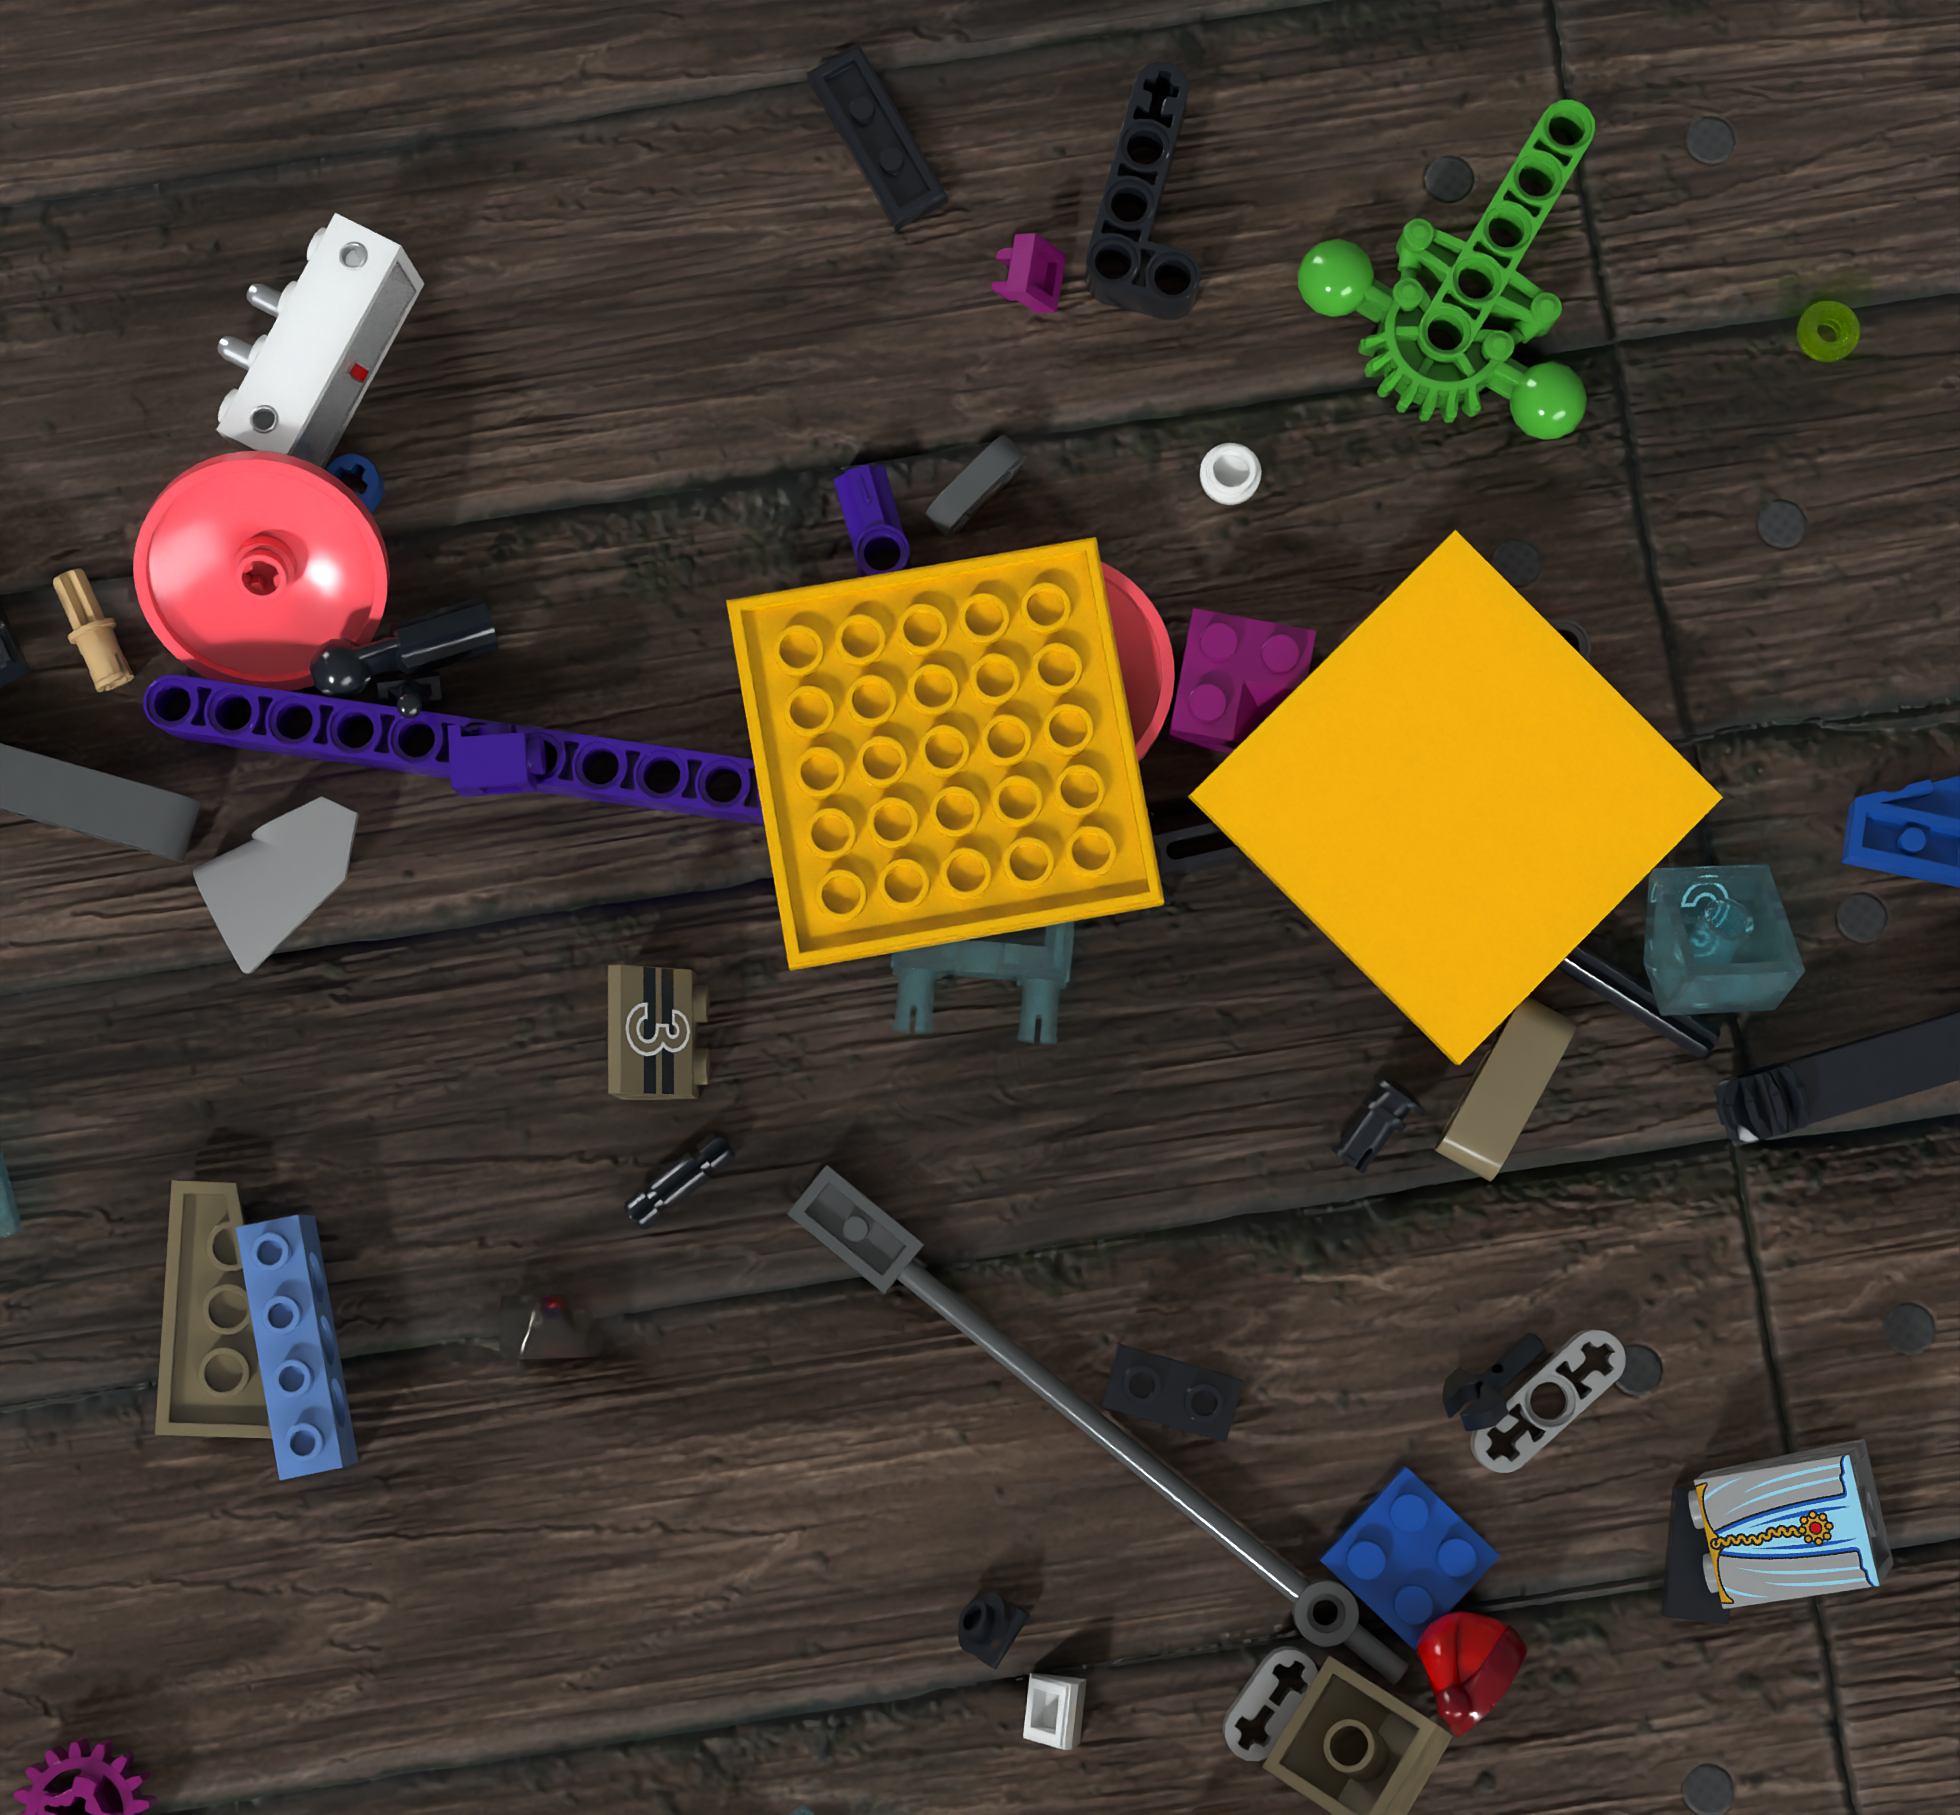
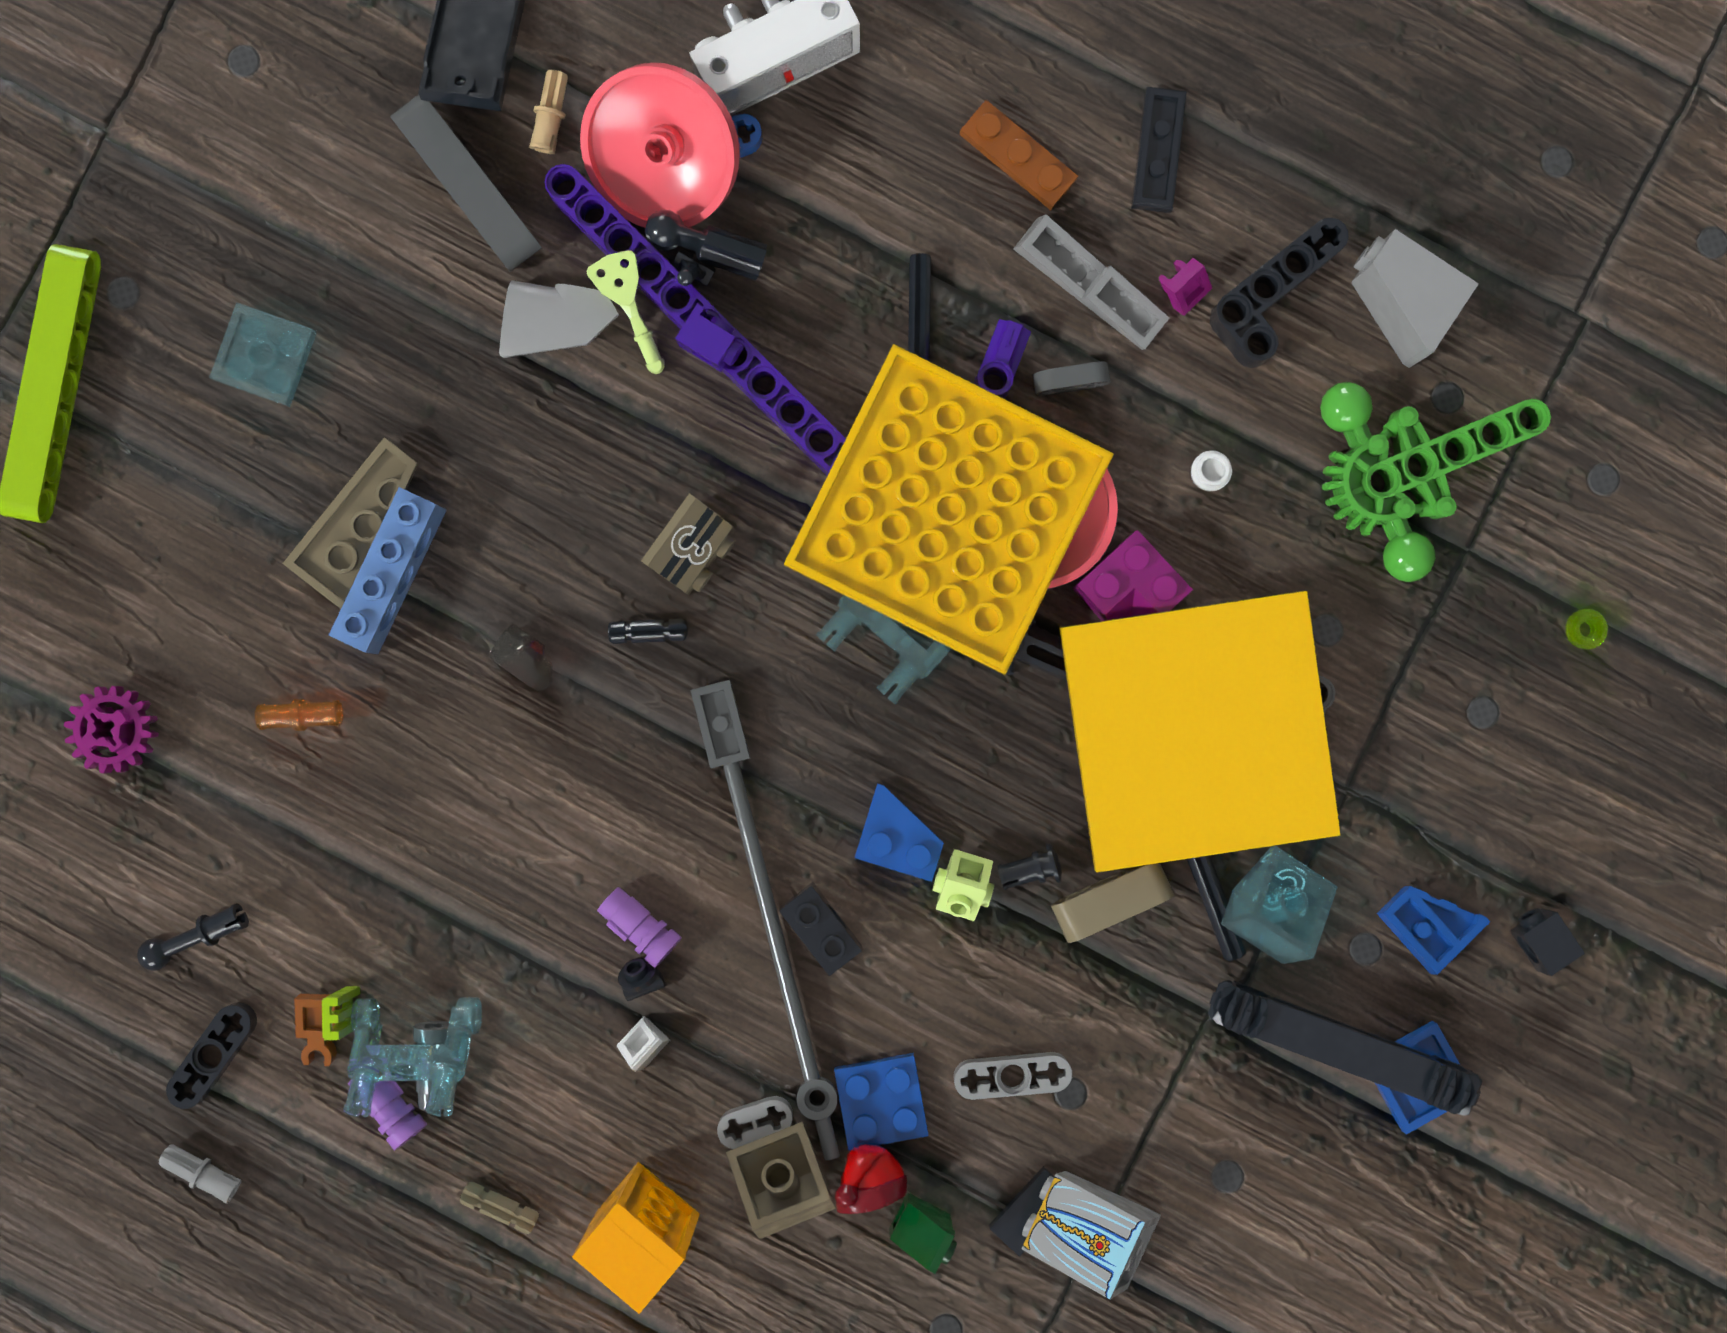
camera: 30 degrees right, 5 degrees up
(313, 1613) = (299, 715): none -> clear orange pin
(351, 785) = (626, 298): none -> yellowish green piece
(710, 266) = (1018, 155): none -> dark orange plate
(722, 532) = (919, 305): none -> black axle
(910, 354) = (1091, 282): none -> light grey slope
(931, 1560) = (633, 922): none -> medium lavender axle
(1183, 1208) = (898, 838): none -> blue wing
(1308, 1204) = (964, 885): none -> yellowish green brick
(1310, 88) = (1410, 294): none -> light grey slope
(1488, 1386) = (987, 1046): black bar -> none
(1586, 1681) = (923, 1232): none -> dark green slope

